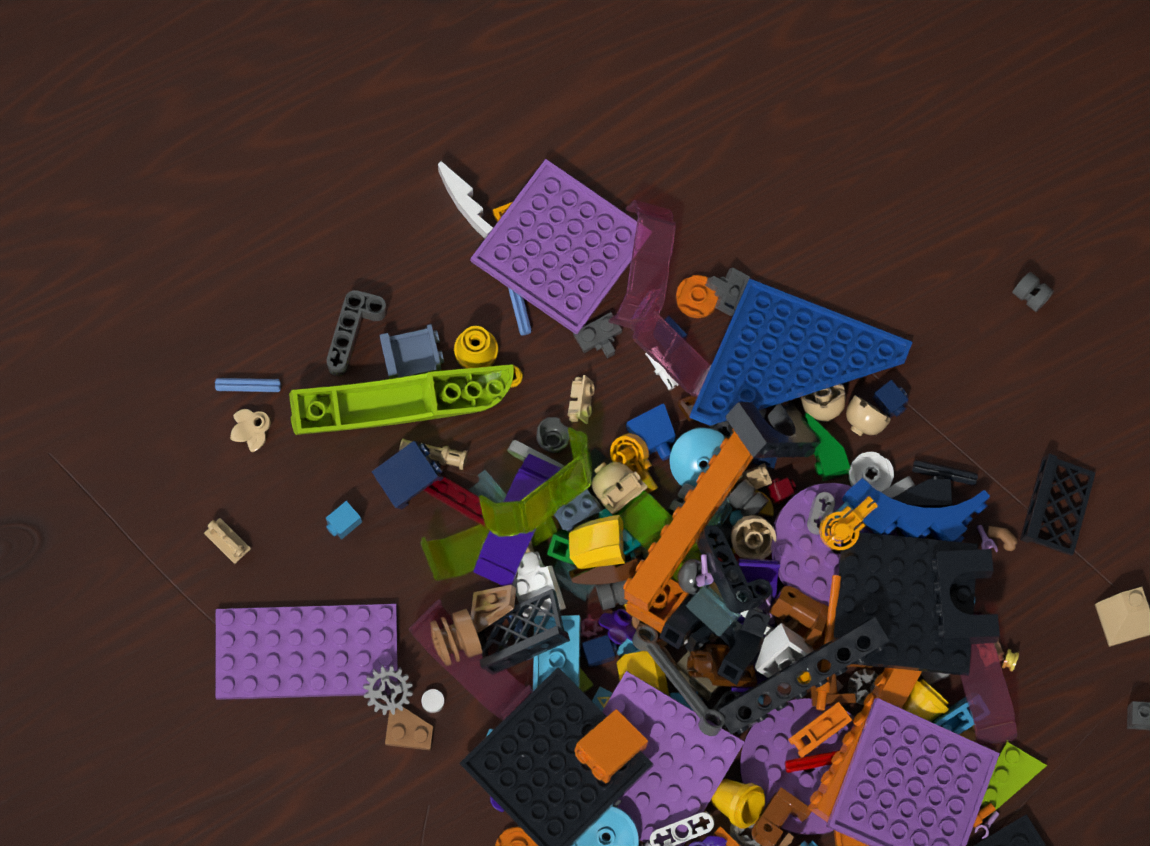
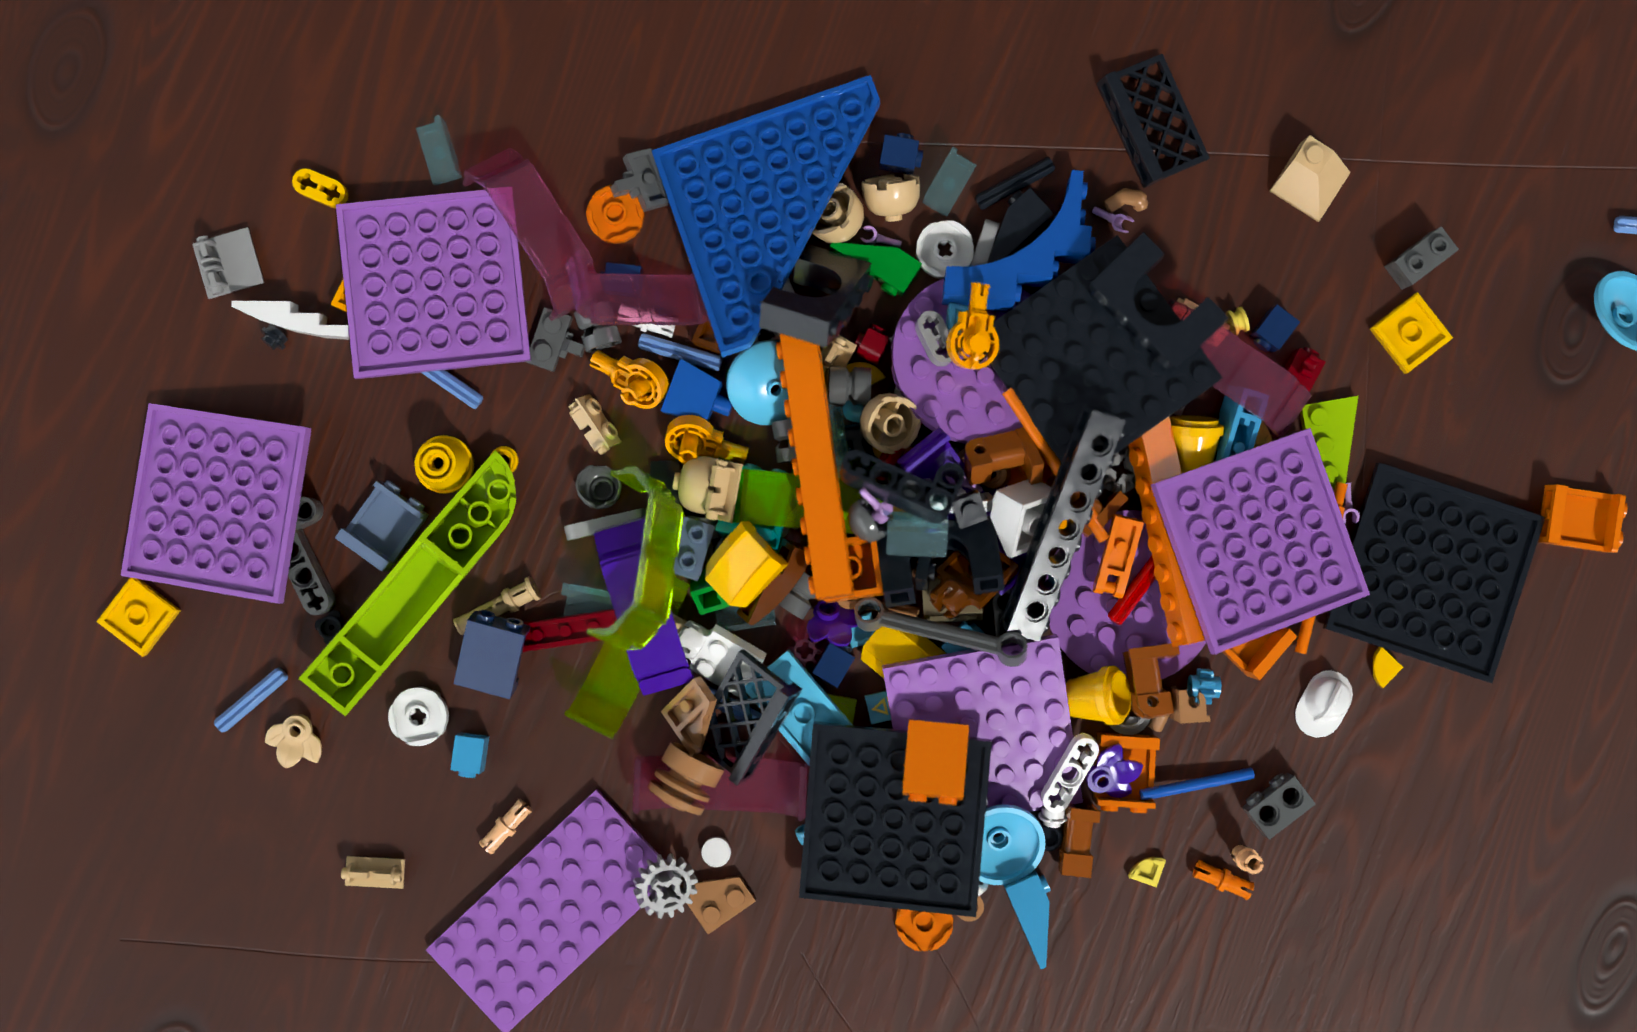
camera: 40 degrees left, 15 degrees up
(228, 286) = (138, 616): none -> yellow tile
(325, 579) = (505, 826): none -> light nougat pin
(330, 378) = (323, 625): none -> black plate
(331, 260) = (216, 502): none -> medium lavender plate
(336, 487) = (405, 706): none -> white plate
(444, 200) = (273, 337): none -> black plate
(455, 140) = (228, 262): none -> light grey hinge
(548, 142) = (322, 182): none -> yellow beam
(627, 393) = (634, 379): none -> light orange pin
(628, 180) = (439, 151): none -> clear light blue panel
(628, 352) = (597, 336): none -> dark grey wheel
(663, 397) = (679, 351): none -> medium blue axle
(837, 436) = (877, 238): none -> lavender hand
(906, 438) = (949, 183): none -> clear light blue panel
(1027, 683) = (1274, 329): none -> dark blue brick
(1028, 720) = (1305, 366): none -> dark red brick
(1110, 757) = (1411, 333): none -> yellow tile

